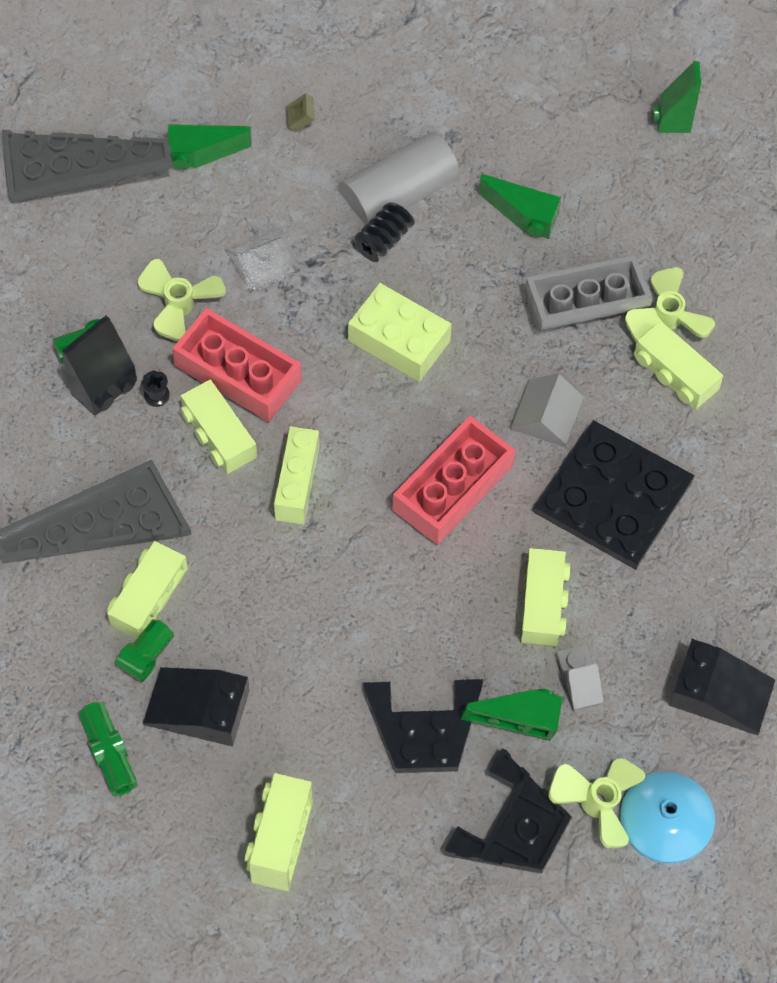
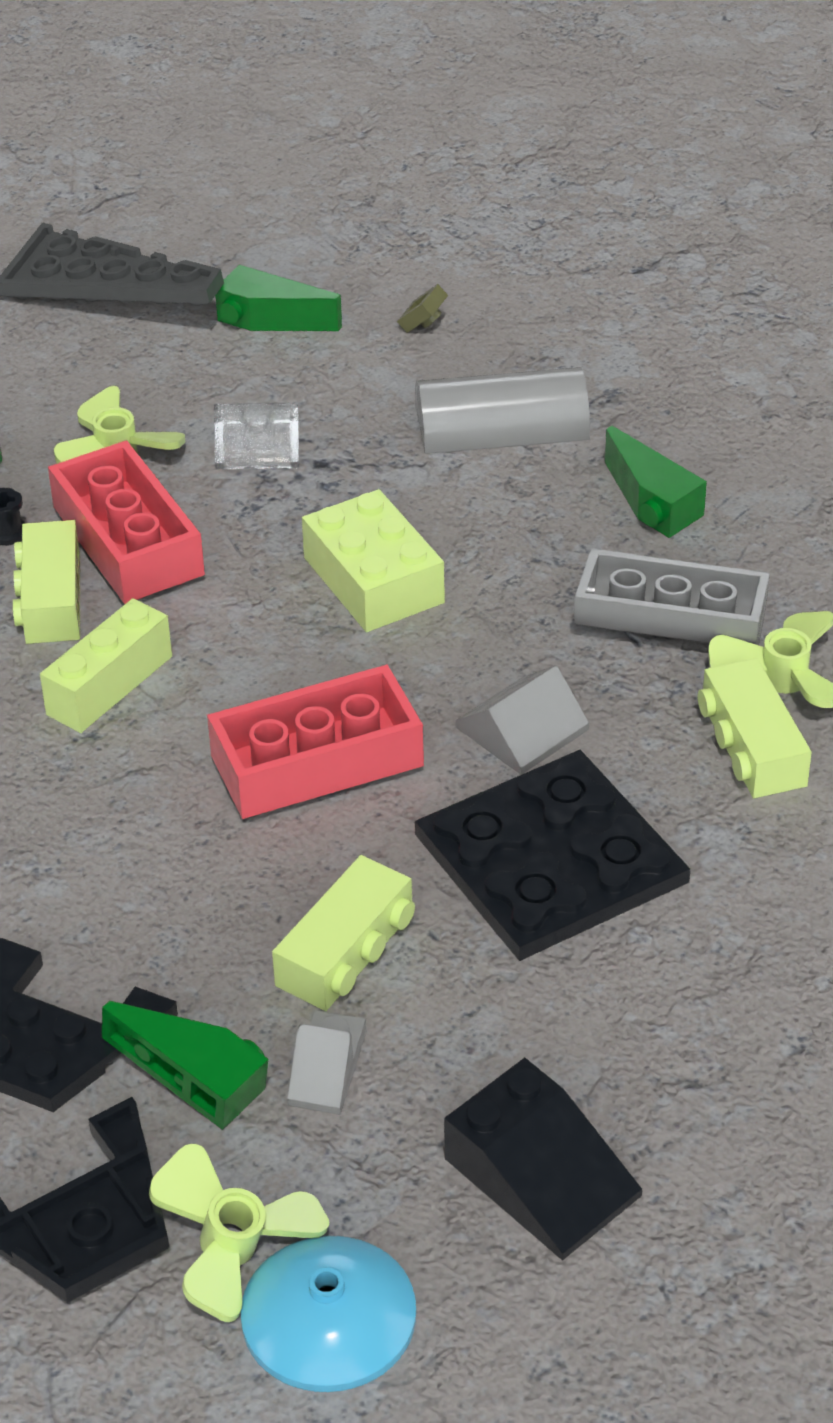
camera: 30 degrees right, 20 degrees down
(383, 230) = (435, 446): black piece -> none

